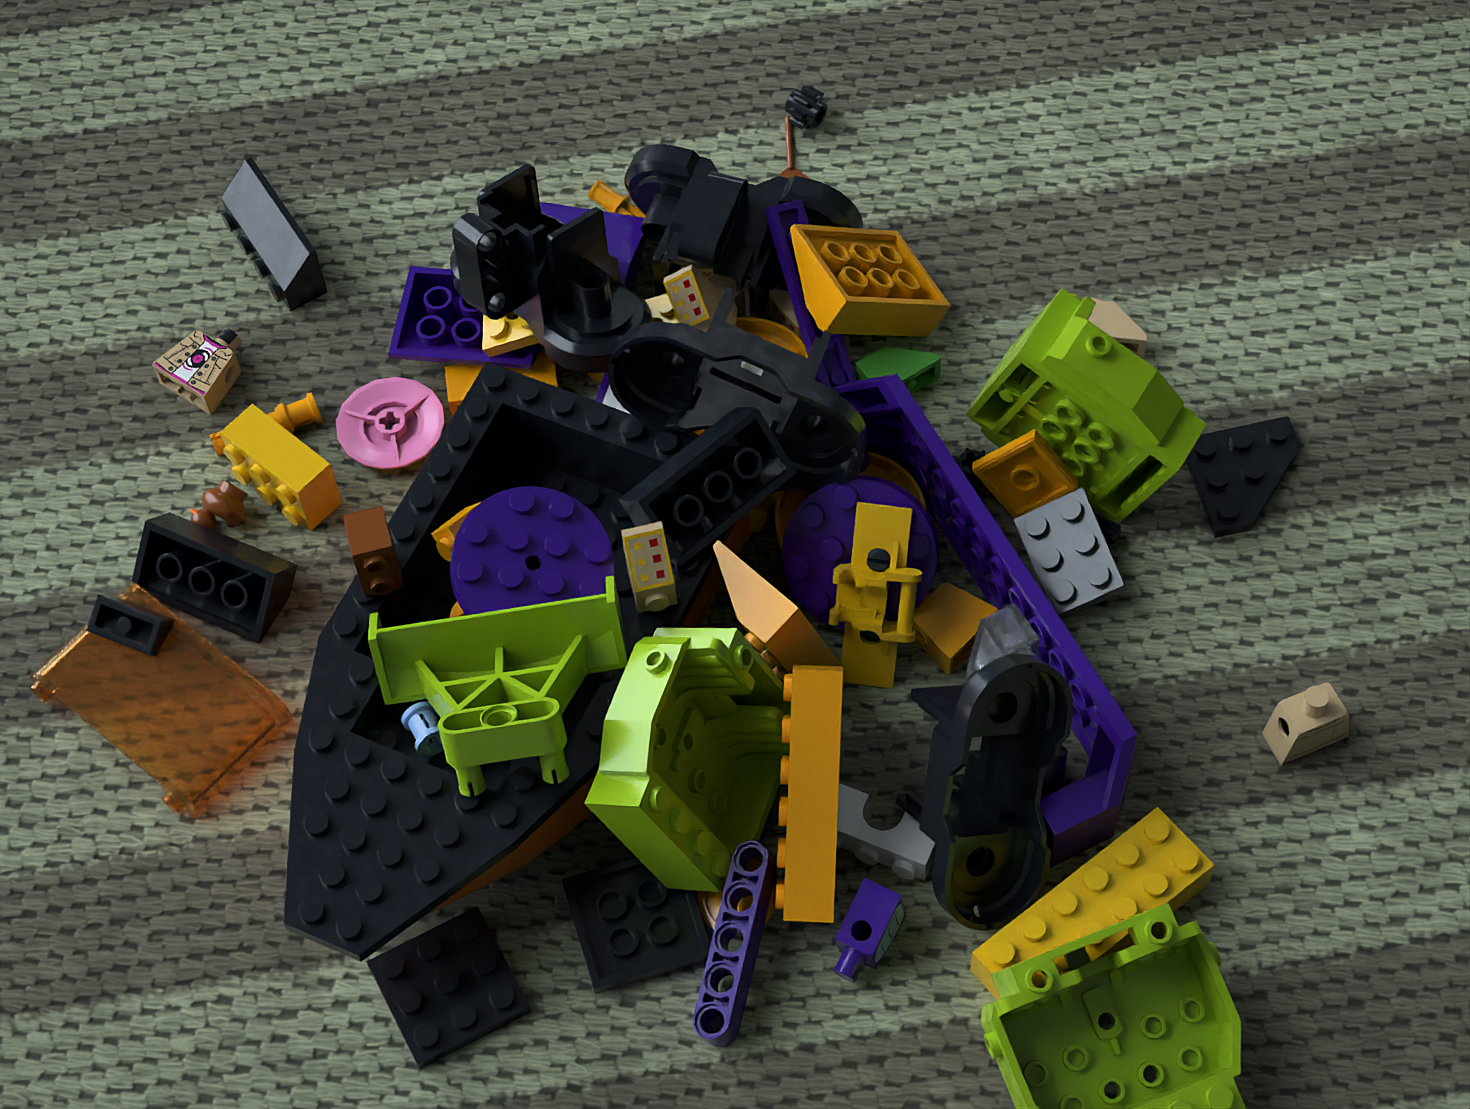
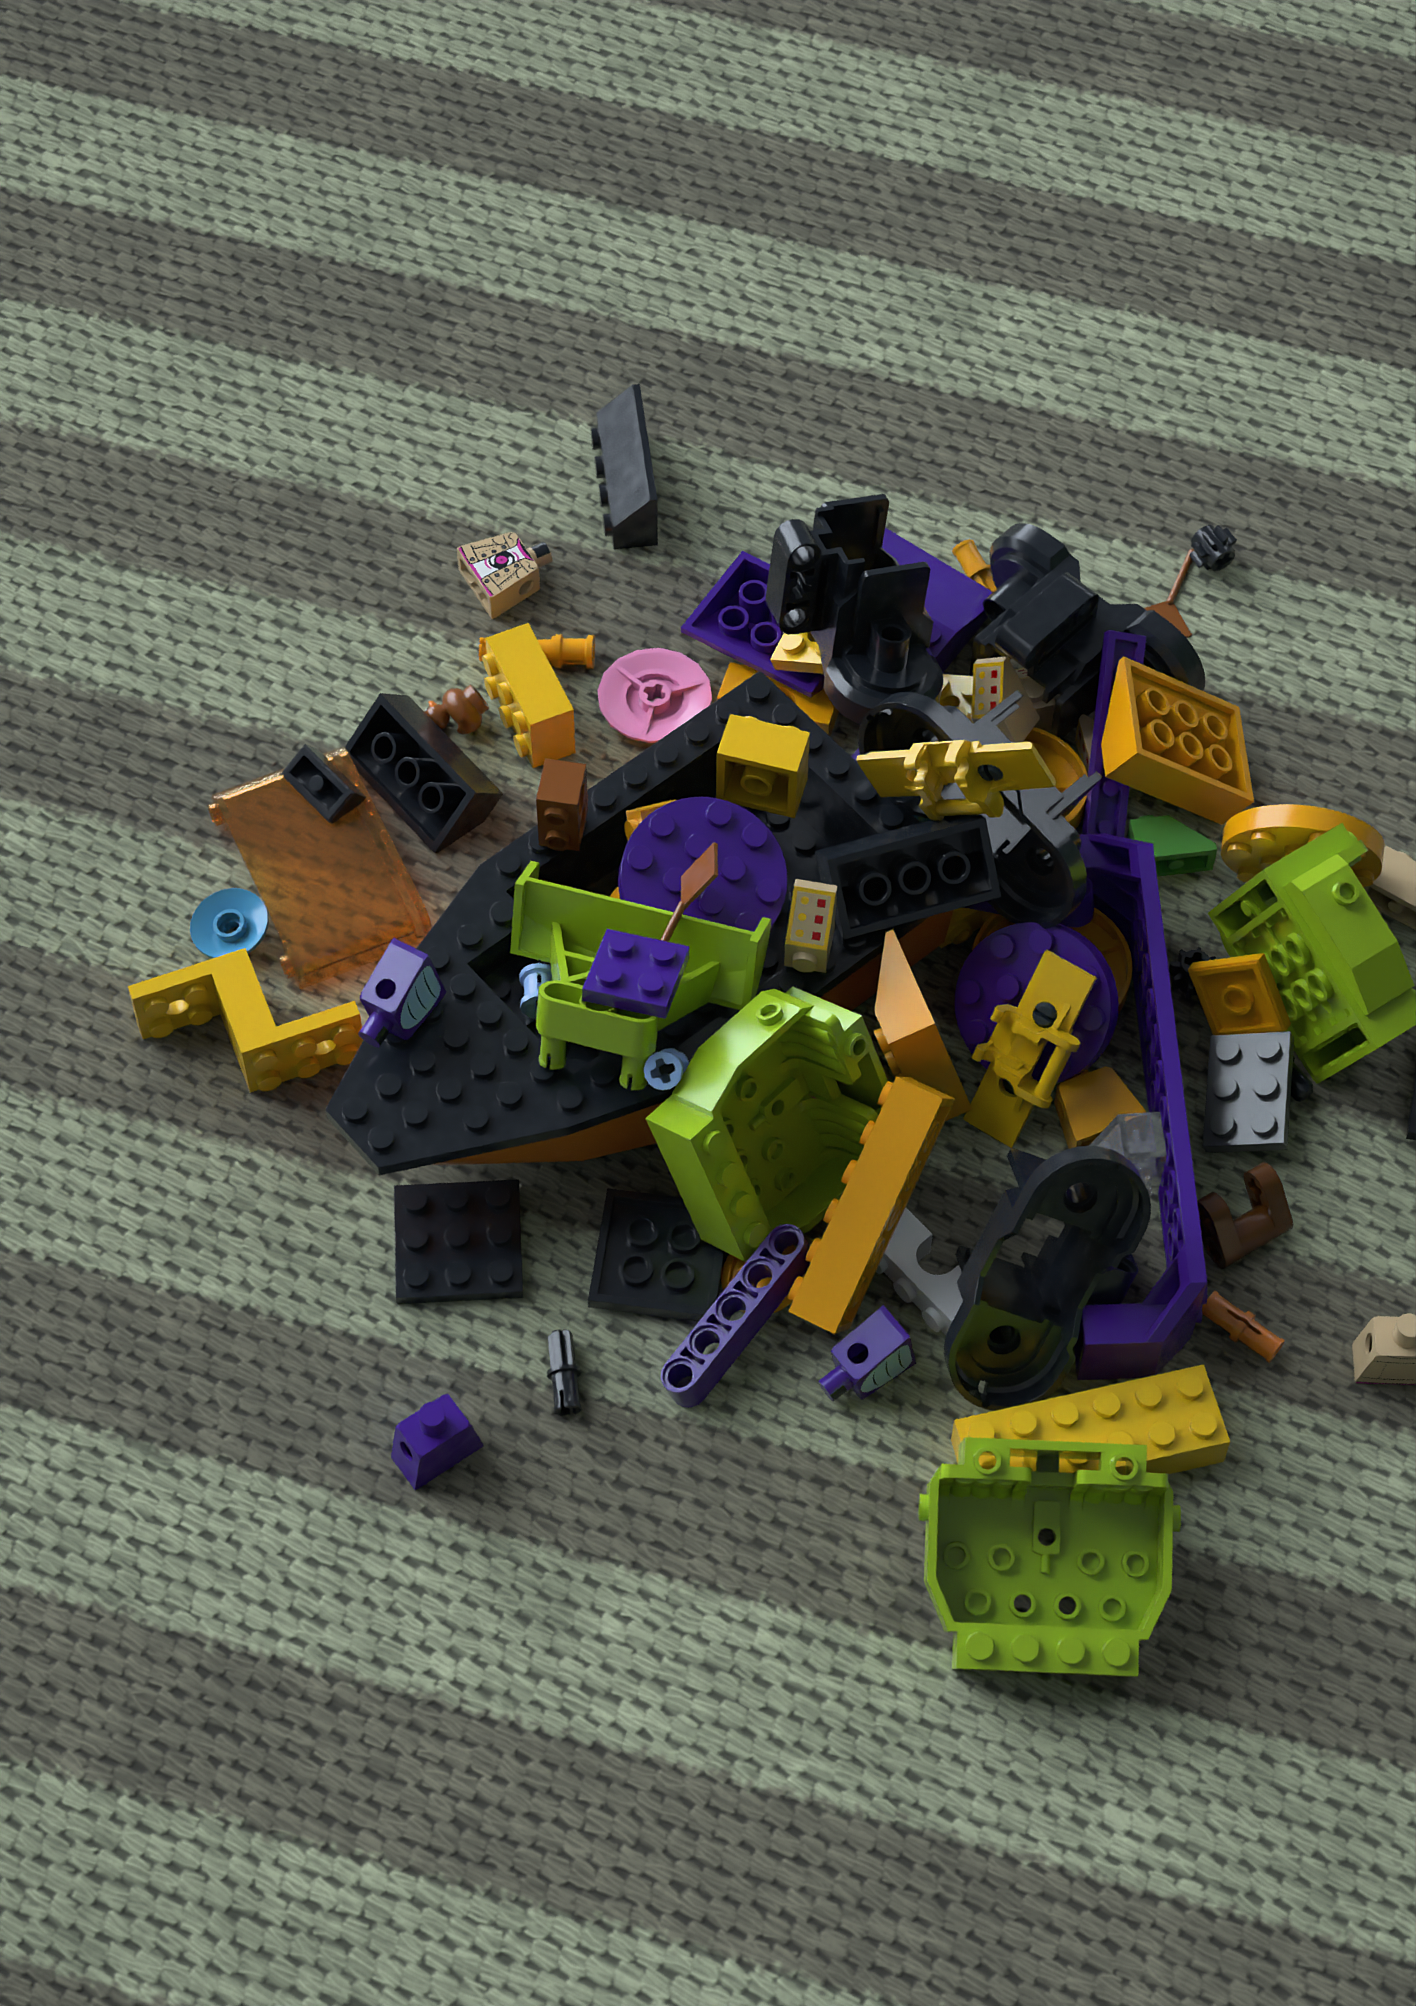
camera: 20 degrees right, 0 degrees up
(90, 776) = (225, 911): none -> dark azure dish
(138, 848) = (231, 988): none -> yellow bracket
(306, 786) = (399, 993): none -> dark purple torso
(520, 676) = (635, 973): none -> dark purple plate
(531, 572) = (693, 883): none -> dark orange piece
(535, 442) = (762, 765): none -> yellow brick
(583, 763) = (664, 1081): none -> light blue bush
(603, 1064) = (564, 1372): none -> black axle
(734, 366) = (974, 767): none -> yellow piece
(988, 328) = (1273, 831): none -> light orange piece
(1138, 662) = (1269, 1218): none -> reddish brown connector
(1169, 759) = (1242, 1326): none -> orange pin

